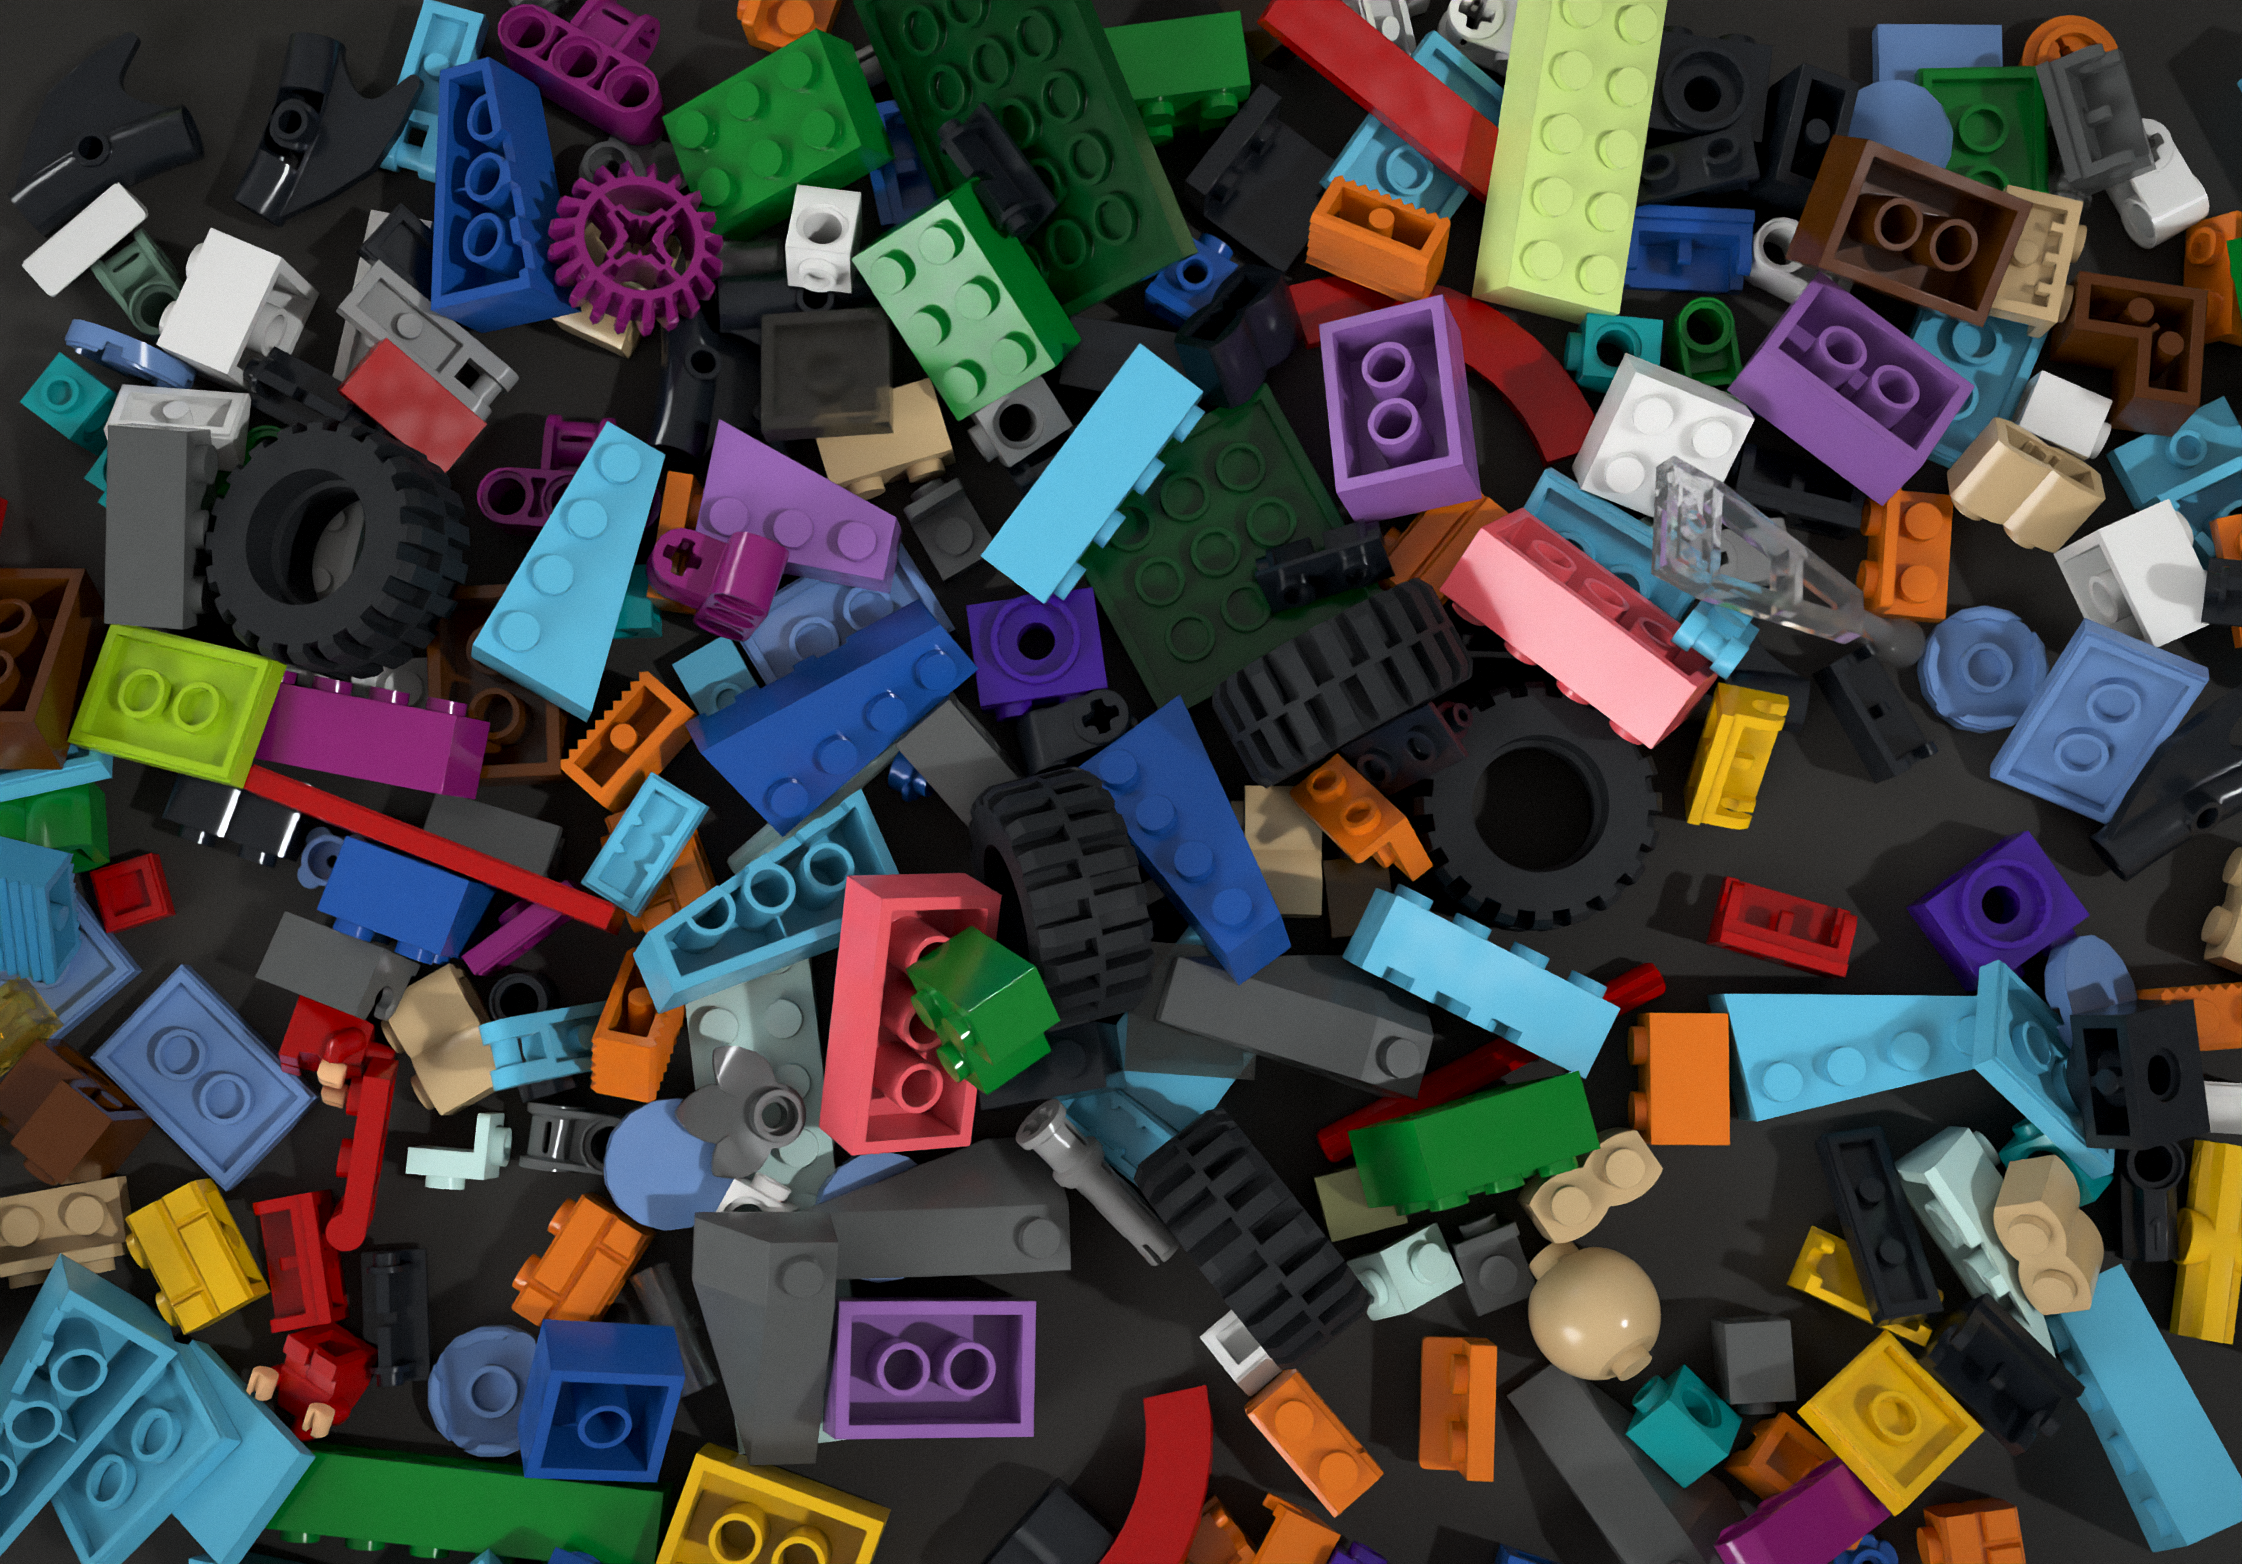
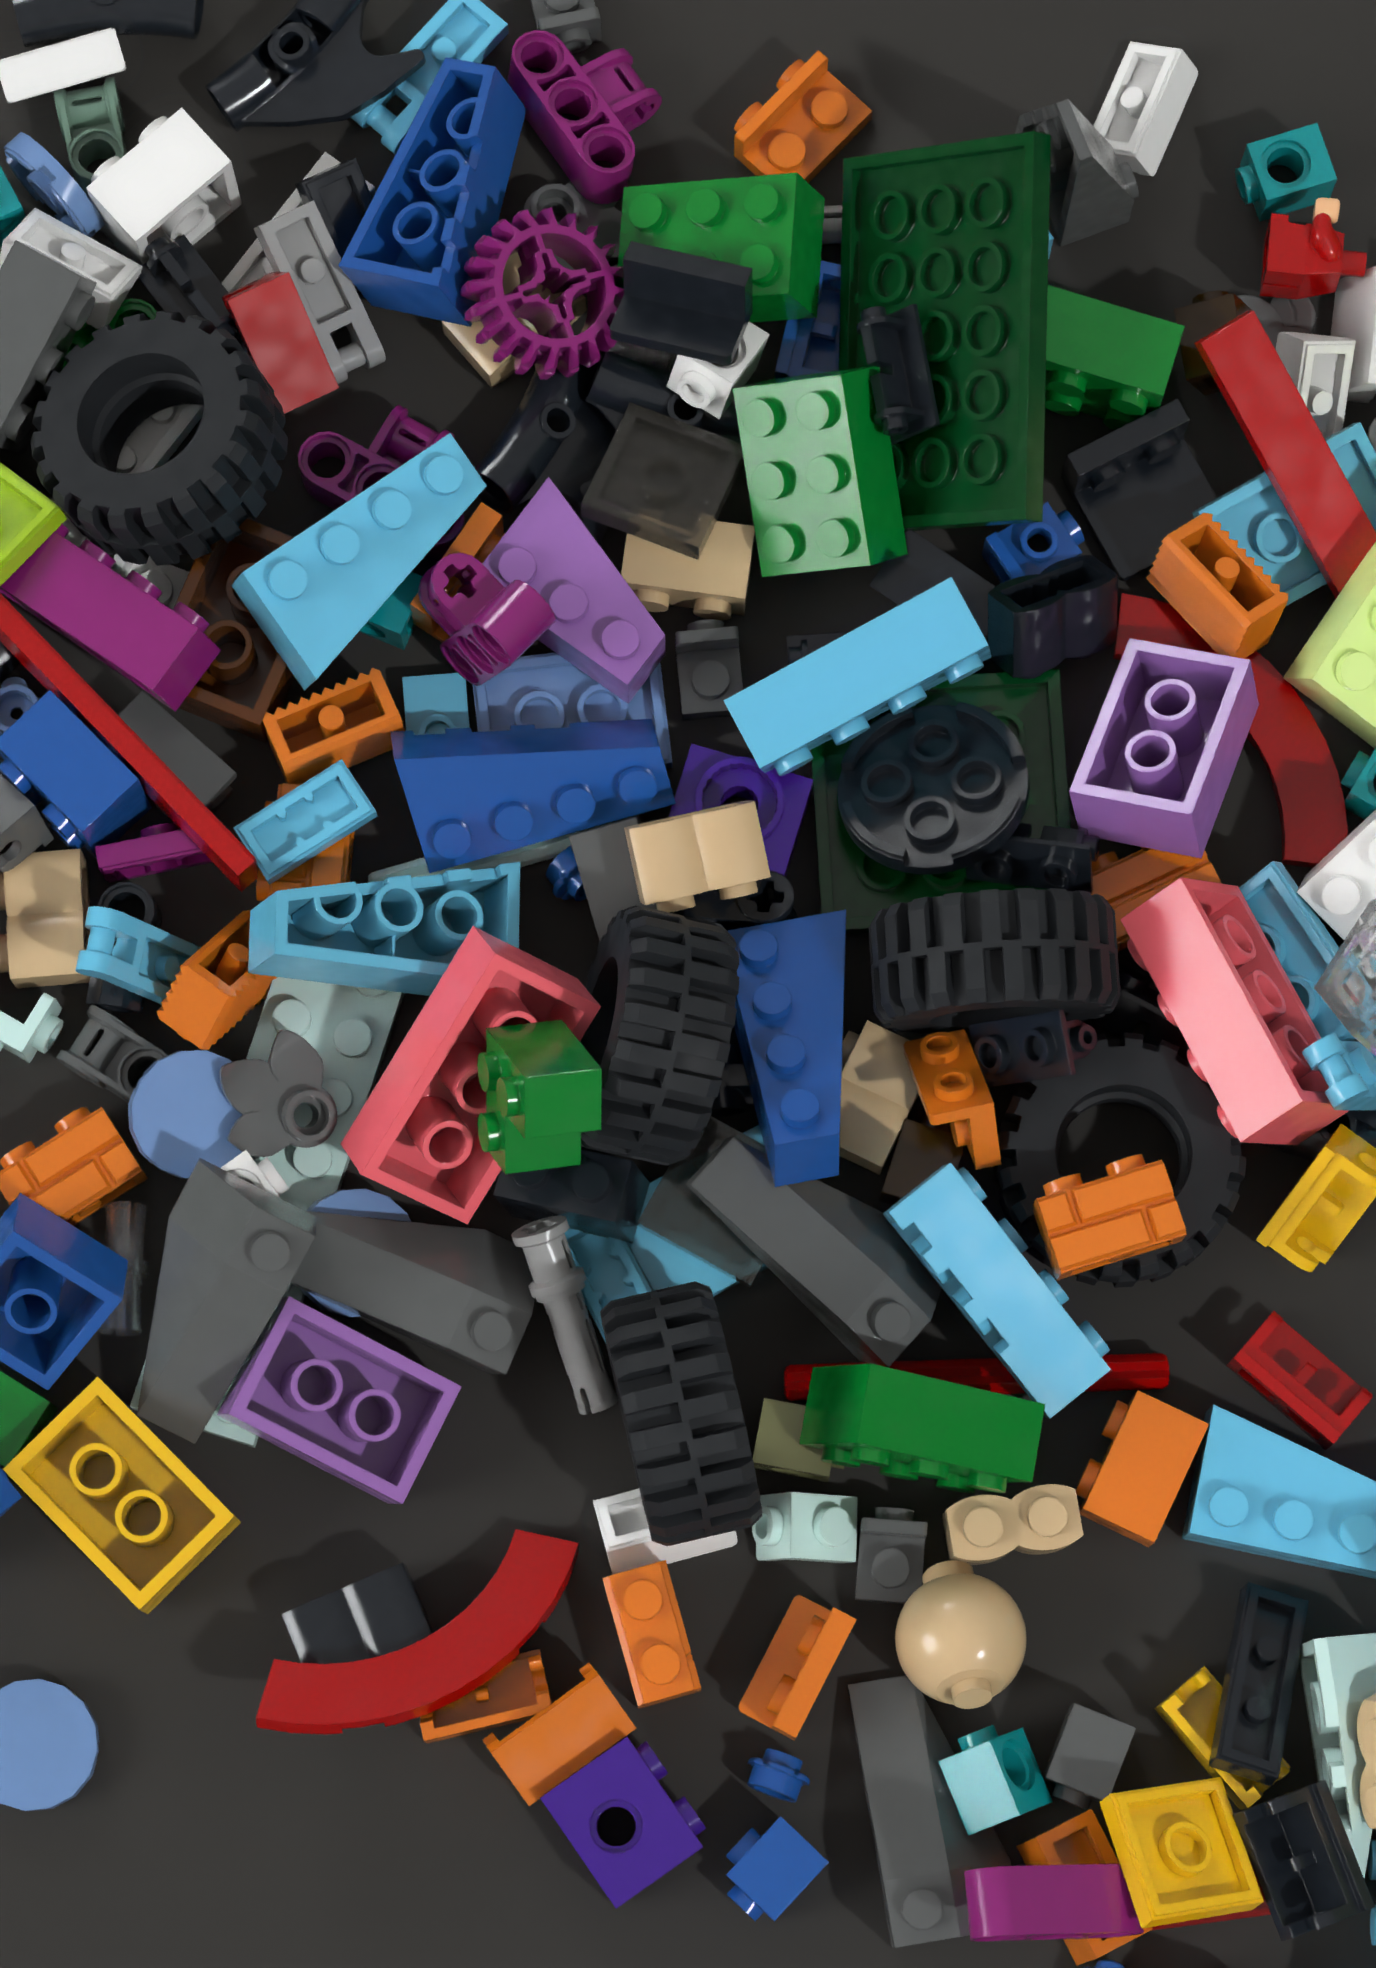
camera: 25 degrees right, 5 degrees down
(768, 199) = (683, 303): none -> black panel
(1023, 708) = (698, 854): none -> tan brick
(1045, 416) = (844, 607): light grey brick -> none
(1208, 546) = (933, 788): none -> black tile
(1484, 1510) = (777, 1775): none -> blue plate
(1560, 873) = (1108, 1217): none -> orange brick

